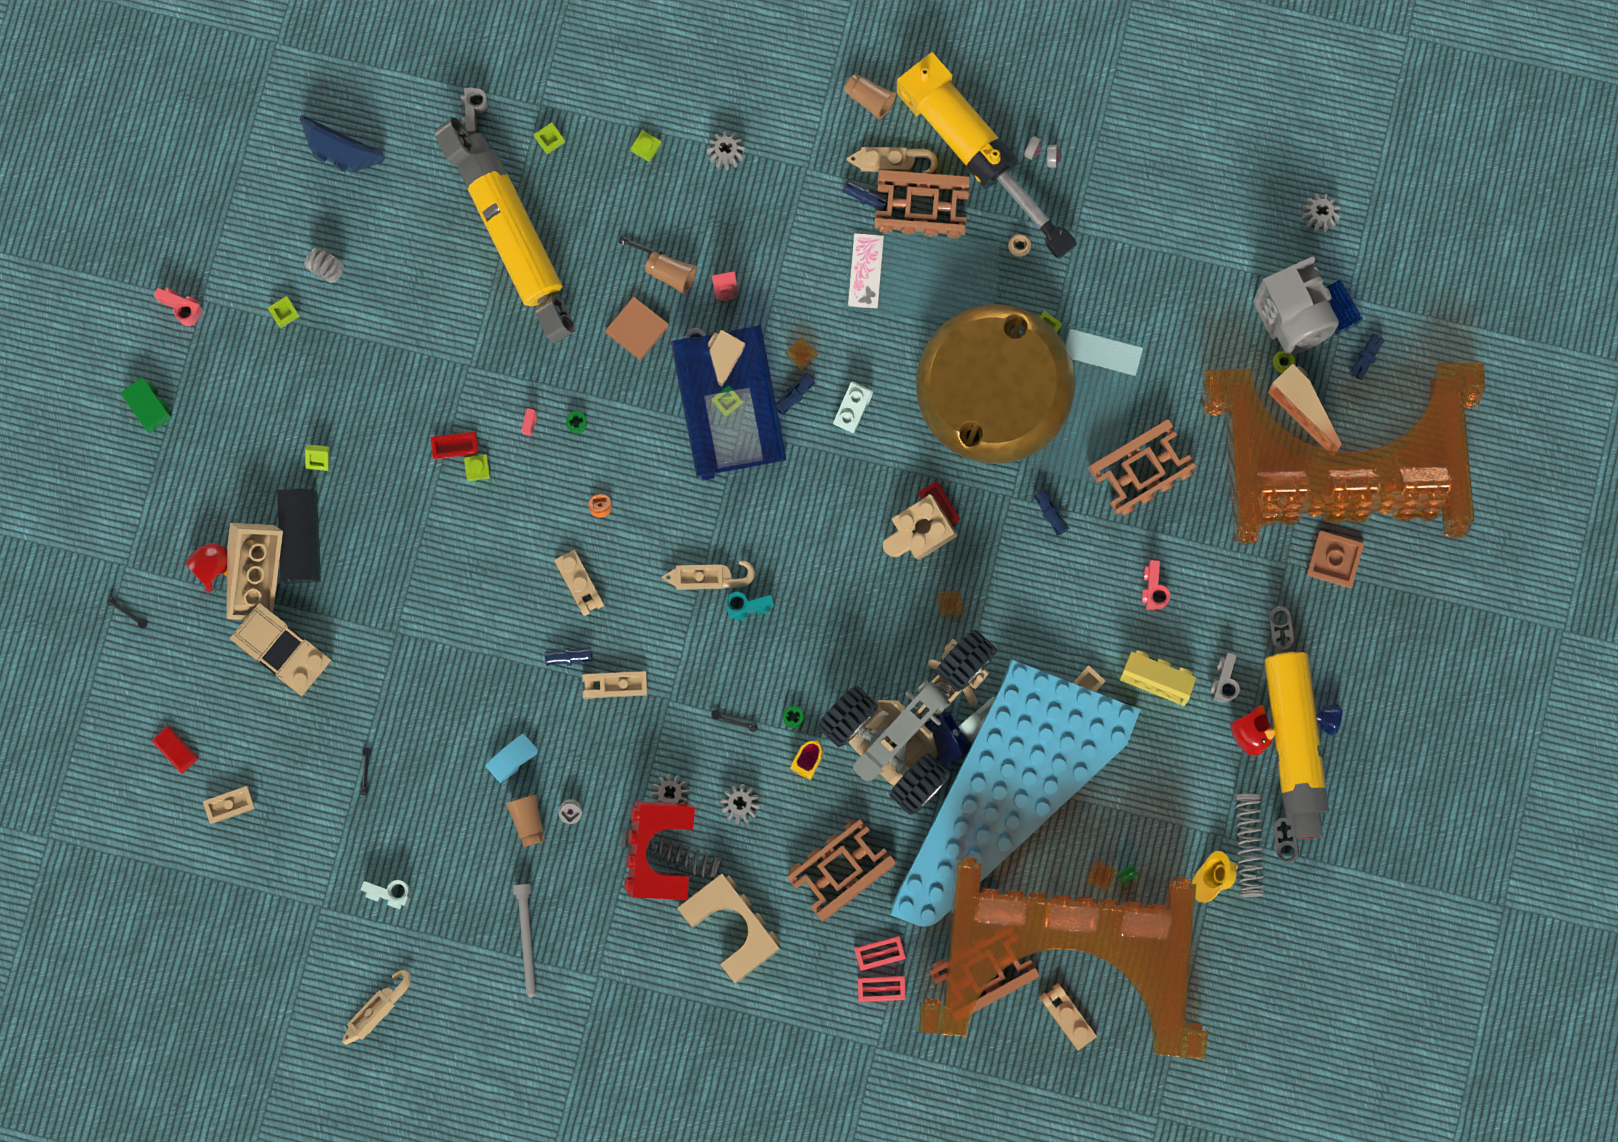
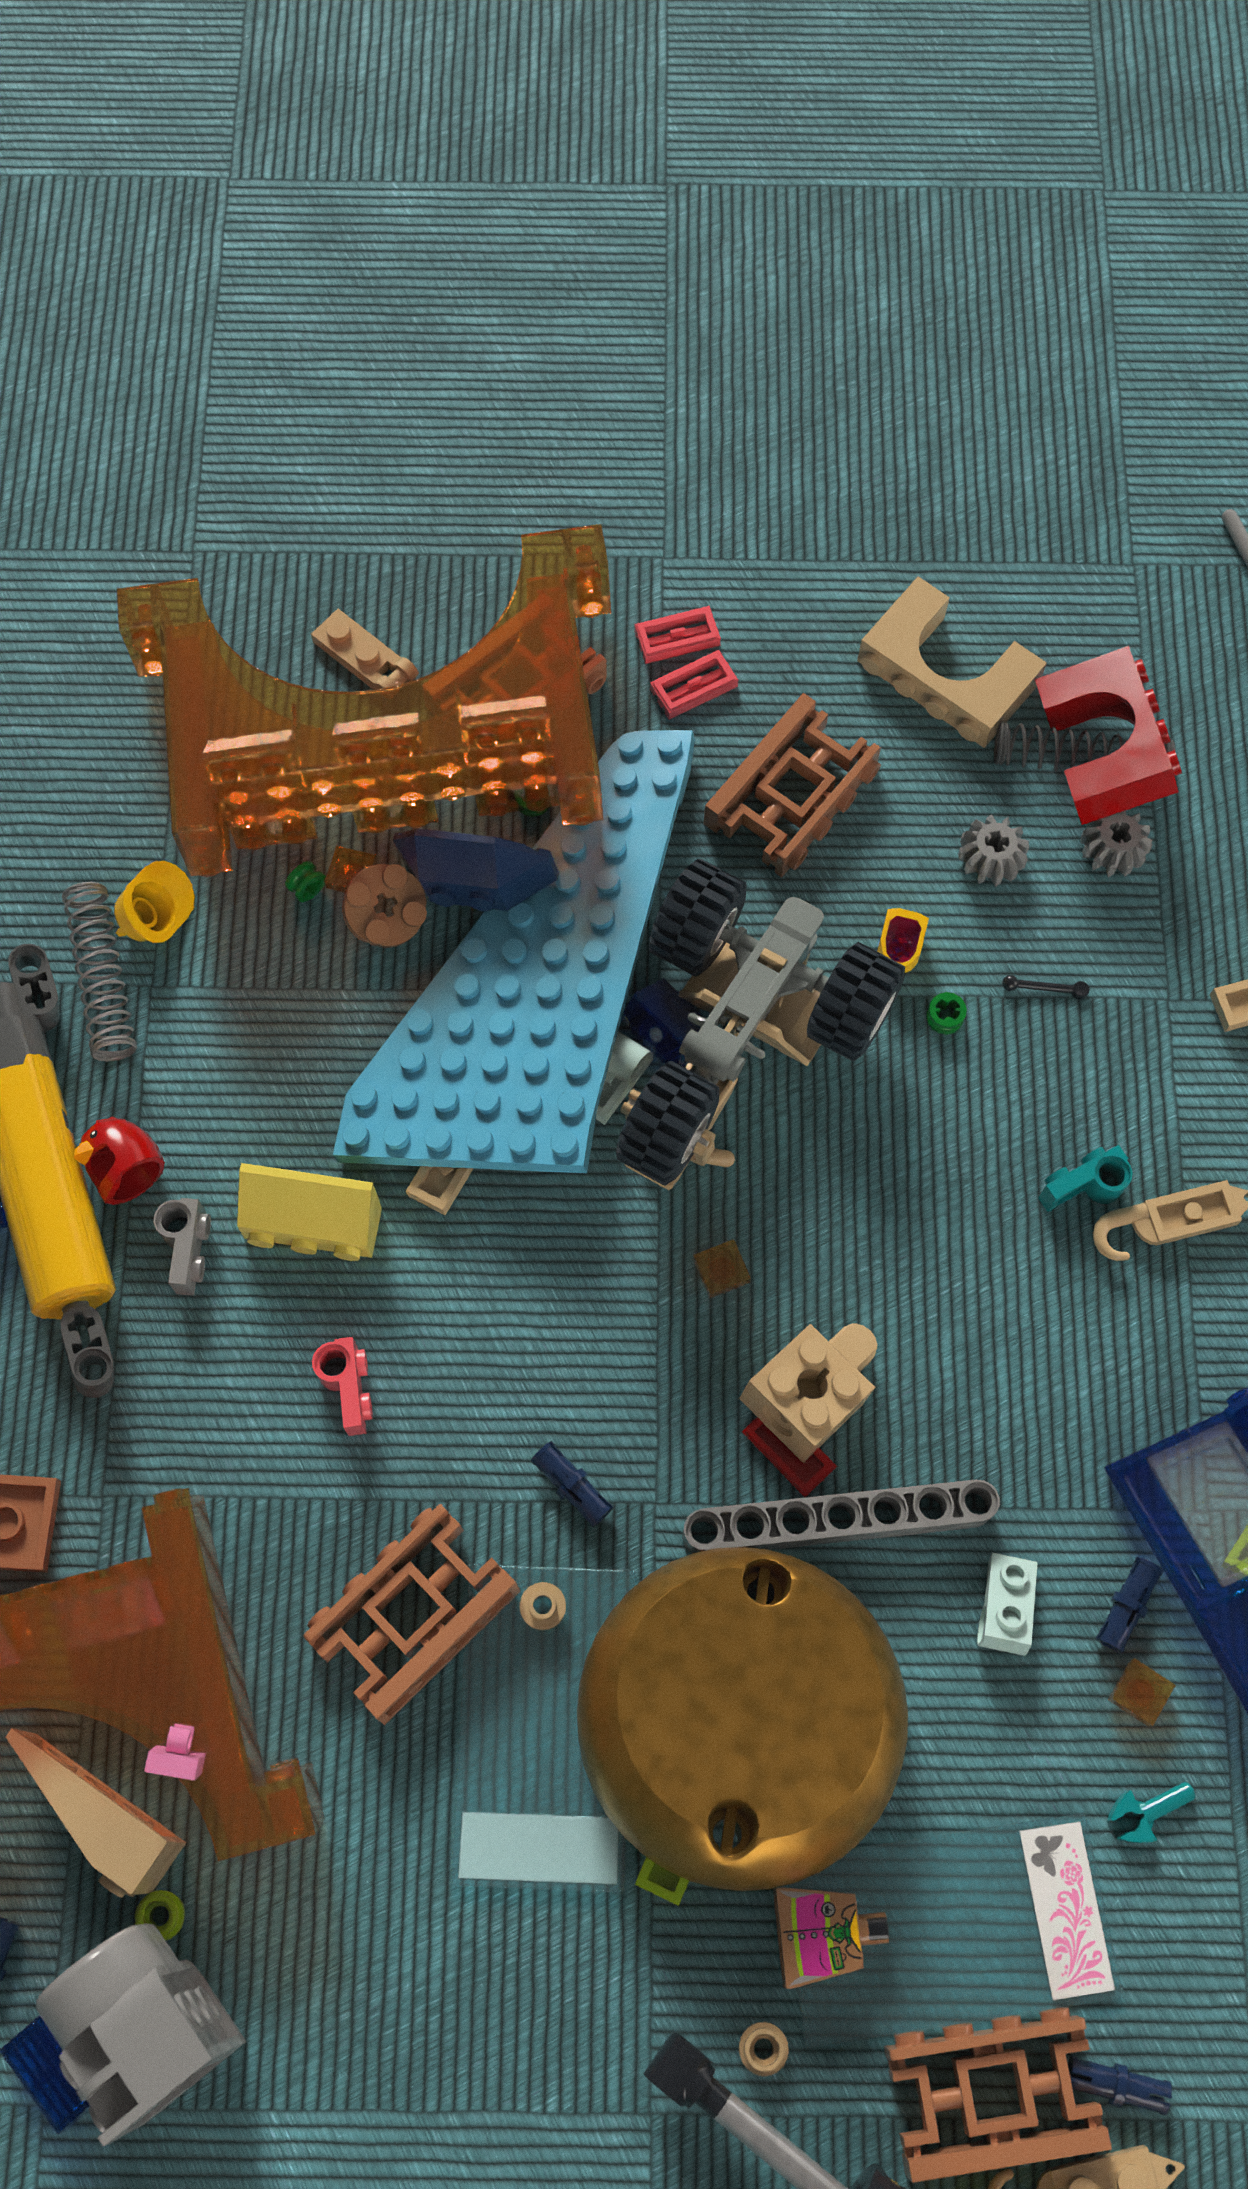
camera: 160 degrees right, 10 degrees down
(814, 303) = (1149, 1811): none -> teal bar
(932, 472) = (859, 1506): none -> light grey beam
(981, 283) = (822, 1934): none -> torso
(1036, 851) = (474, 868): none -> dark blue wedge
(1078, 463) = (542, 1621): none -> tan plate
(1089, 835) = (391, 882): none -> medium nougat plate
(1262, 411) = (176, 1758): none -> bright pink tile

